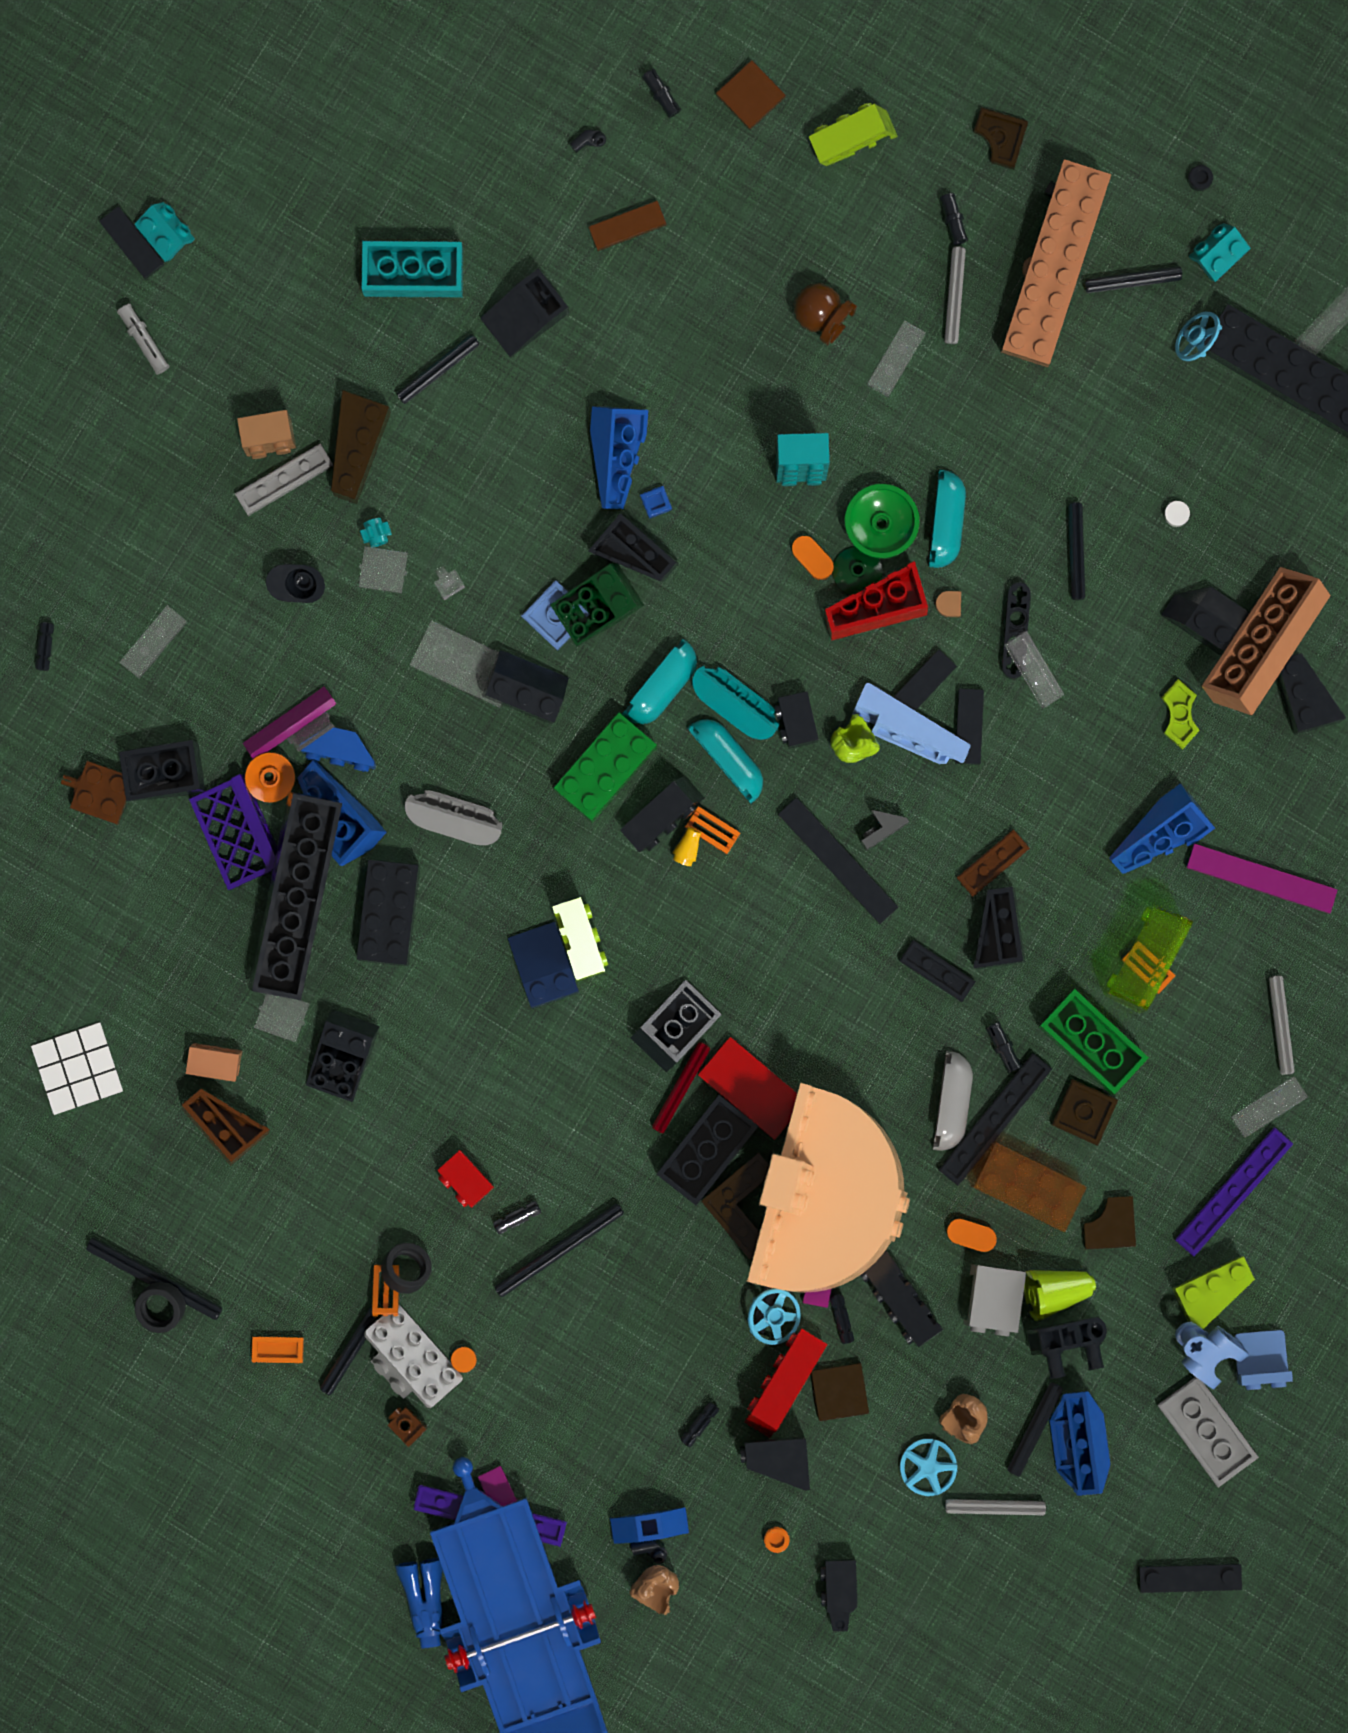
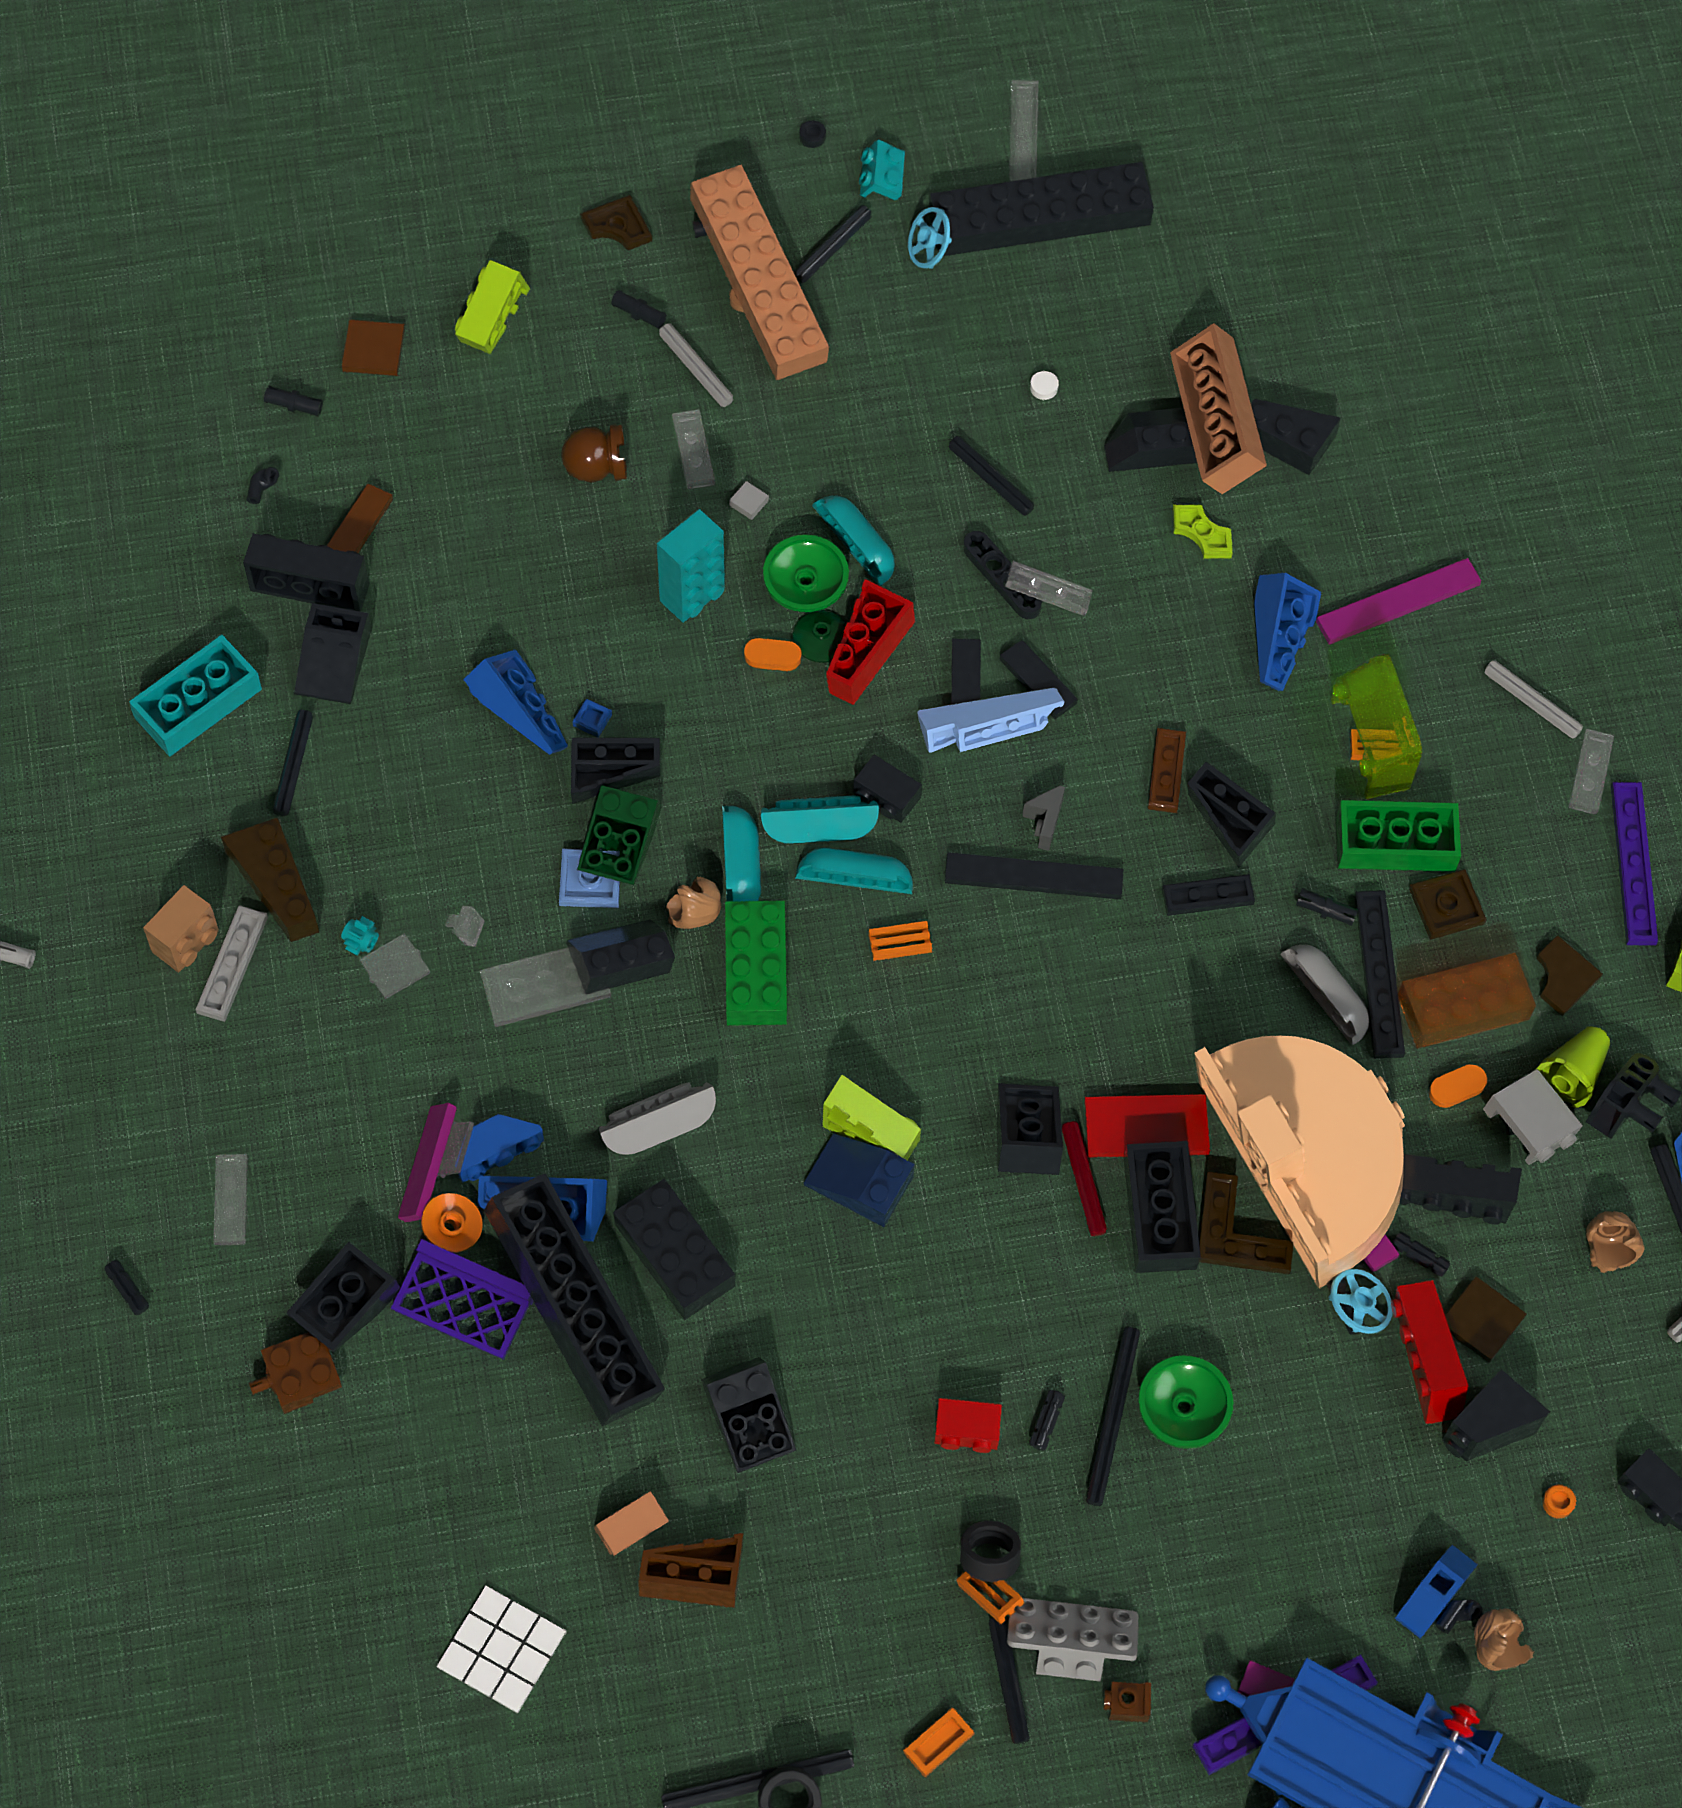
camera: 45 degrees left, 20 degrees down
(282, 1016) = (657, 1429): clear piece -> none
(295, 583) = (324, 1033): black piece -> none
(463, 1359) = (1121, 1593): orange tile -> none
(556, 239) = (306, 572): none -> black brick
(601, 1302) = (1191, 1383): none -> green dish
(602, 697) = (694, 904): none -> medium nougat hair
(662, 814) = (844, 959): black wedge -> none
(687, 848) = (893, 970): yellow cone -> none
(699, 1424) = (1390, 1459): black axle -> none
(854, 741) = (954, 765): lime hair -> none
(898, 430) = (748, 500): none -> light grey tile
(928, 1467) = (1624, 1315): medium azure wheel -> none
(949, 604) = (926, 598): medium nougat tile -> none

